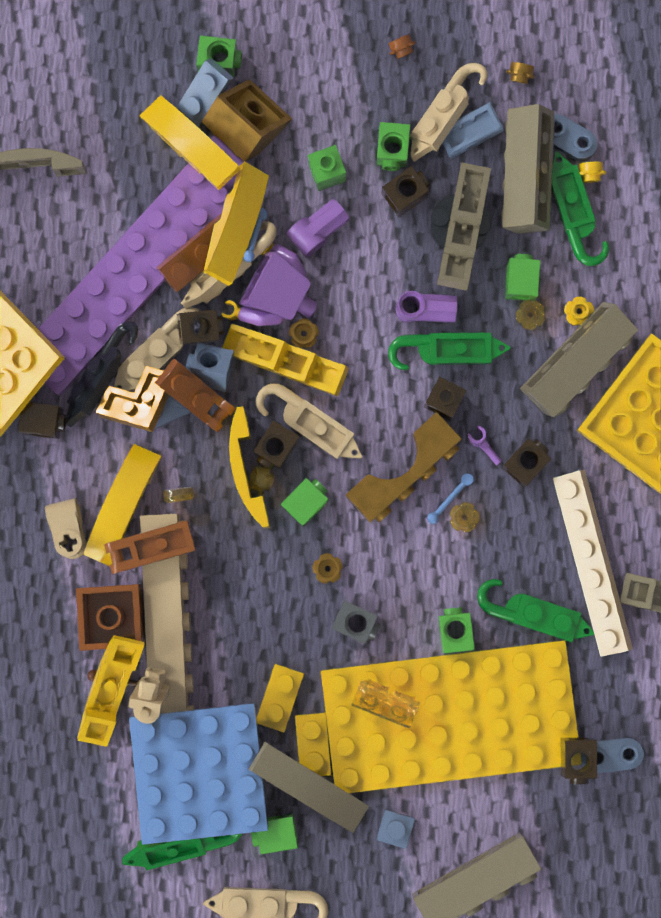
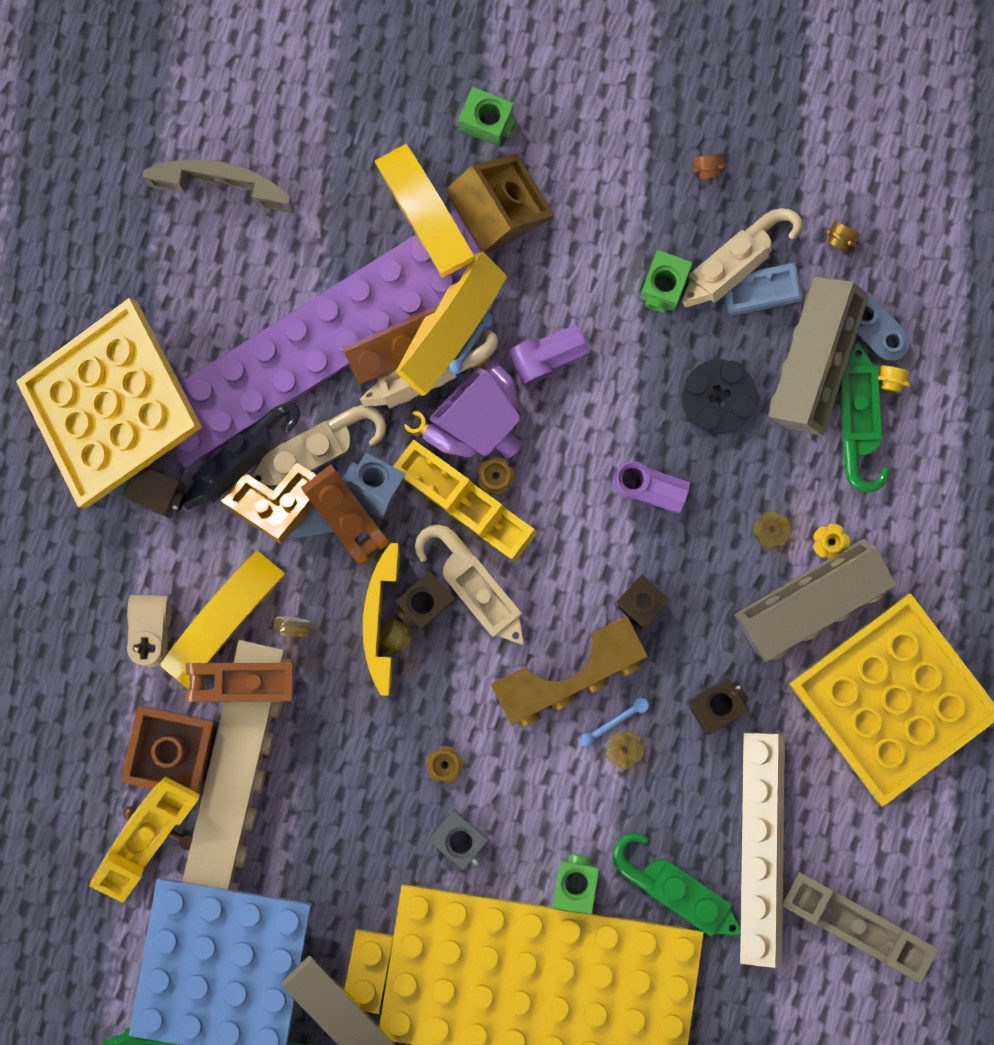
camera: 10 degrees right, 0 degrees up
(149, 695) = (188, 860): tan hips -> none
(185, 327) = (356, 434): dark brown brick -> none
(204, 89) = (464, 148): sand blue plate -> none
(279, 697) = (343, 903): yellow plate -> none
(306, 501) = (441, 677): bright green brick -> none
(327, 167) = (579, 286): bright green brick -> none
(393, 707) = (461, 946): clear yellow hinge -> none
(399, 202) = (653, 352): dark brown brick -> none
(449, 348) = (663, 542): green plate -> none
(464, 226) = (722, 402): dark tan slope -> none
(485, 446) = (674, 672): medium lavender hand -> none
(522, 278) = (775, 483): bright green brick -> none

